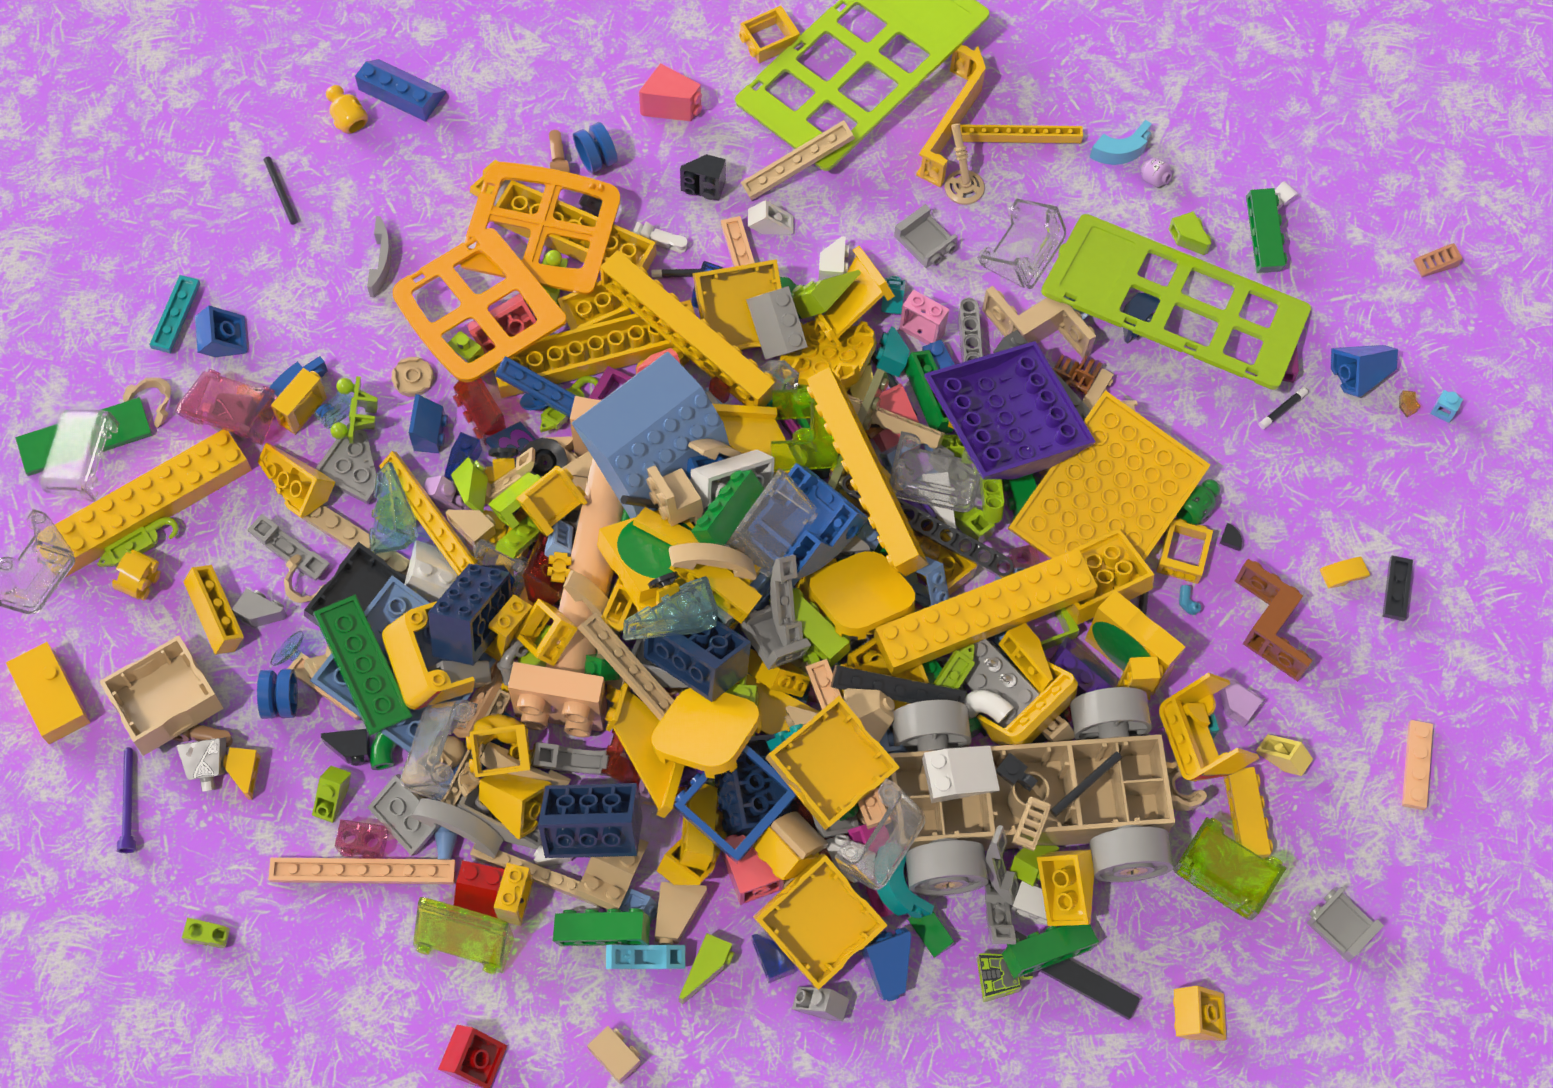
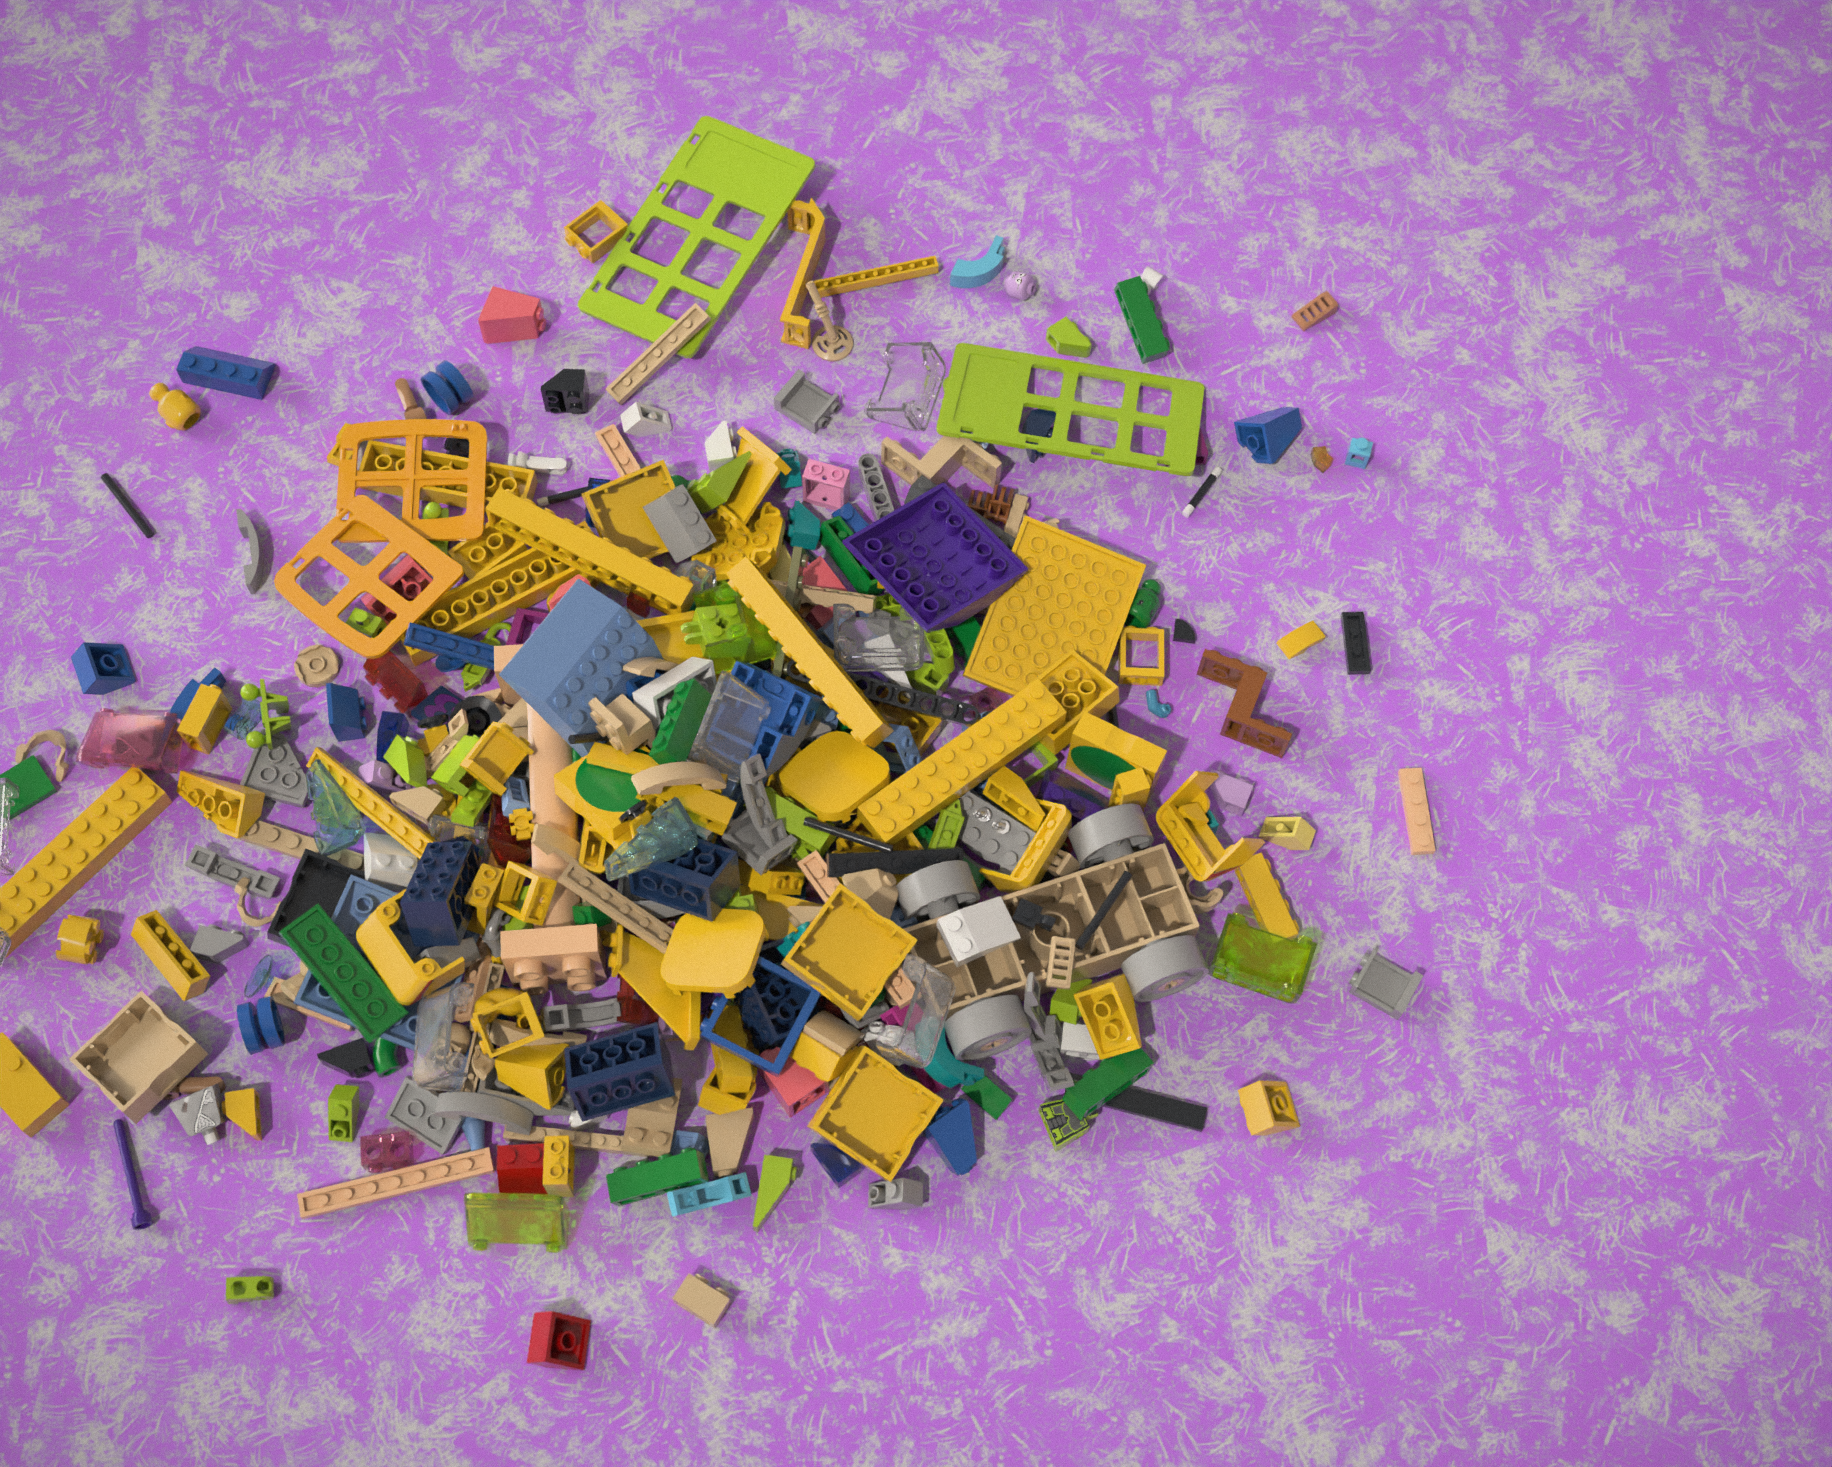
camera: 15 degrees left, 0 degrees up
(138, 540) = (73, 903): lime plate -> none
(174, 314) = (48, 660): teal plate -> none
(780, 423) = (710, 625): none -> lime hinge
(858, 651) = (848, 835): none -> black bar
(987, 703) = (987, 854): white cylinder -> none

